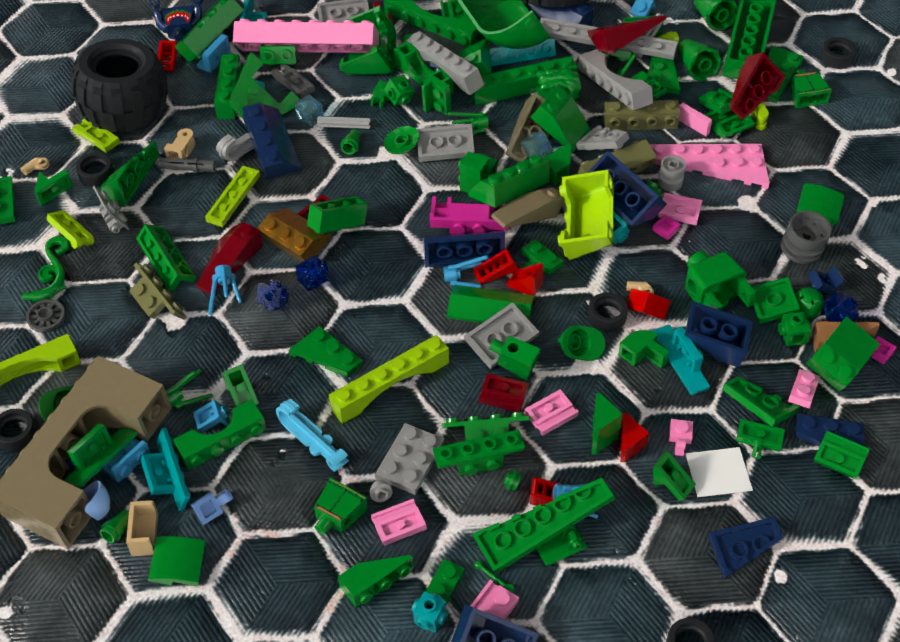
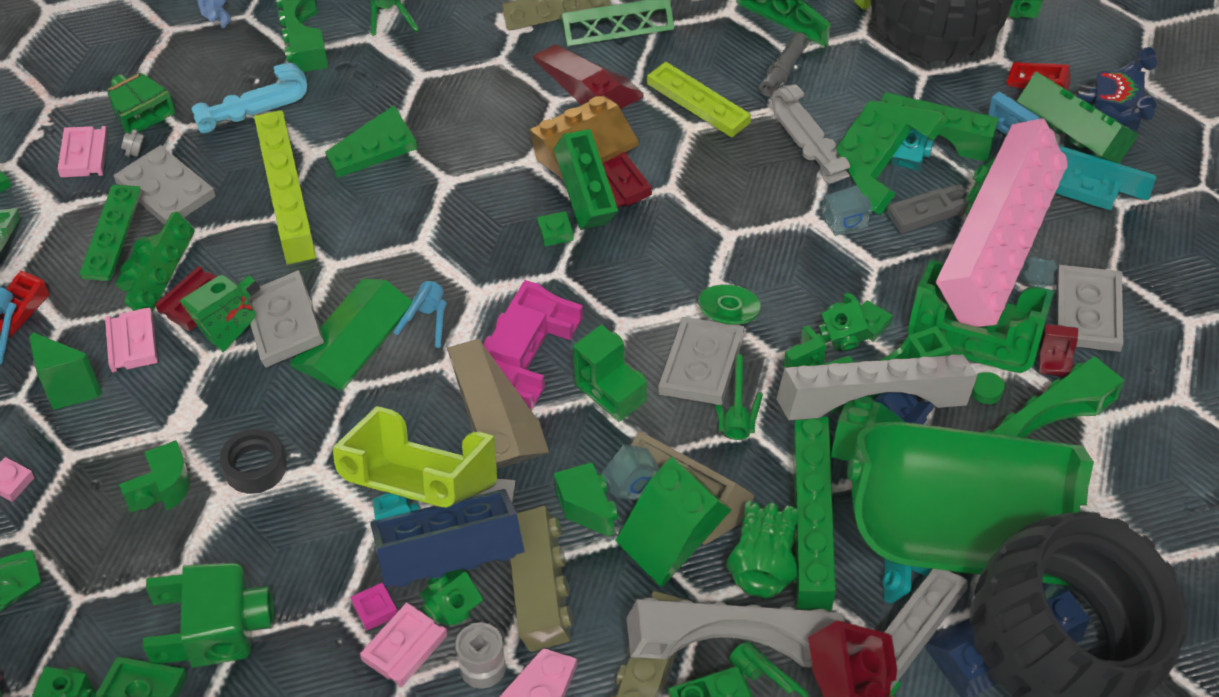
camera: 110 degrees right, 0 degrees up
(181, 146) = (823, 63): tan leg -> none
(211, 415) = (334, 24): dark azure bracket -> none
(224, 277) = (538, 56): dark azure plant -> none
(239, 385) = (353, 44): green slope -> none
(270, 140) = (783, 144): dark blue slope -> none
(272, 294) = (486, 99): clear blue brick -> none
(312, 272) = (502, 145): clear blue brick -> none
(343, 122) = (808, 252): light grey axle -> none
(351, 142) = (756, 247): green cone -> none
(368, 236) = (555, 228): none -> green plate
(370, 577) = (31, 111): green slope -> none
(458, 248) = (463, 308): dark blue slope -> none
(504, 269) = (412, 356): red slope -> none
(512, 182) = (555, 403): green slope -> none
(512, 480) = (61, 267): green plate -> none
(527, 280) = (366, 381): red slope -> none
(538, 253) = (419, 413): green plate -> none
(582, 343) = (216, 401): green piece -> none
(602, 139) = (602, 571): light grey wing -> none
(633, 437) = (34, 410): red slope -> none
(643, 286) = (275, 528): tan arm -> none
(648, 304) = (231, 513): red slope -> none
(683, 357) = (119, 524): teal bracket -> none
(719, 333) = (110, 567): dark blue slope -> none

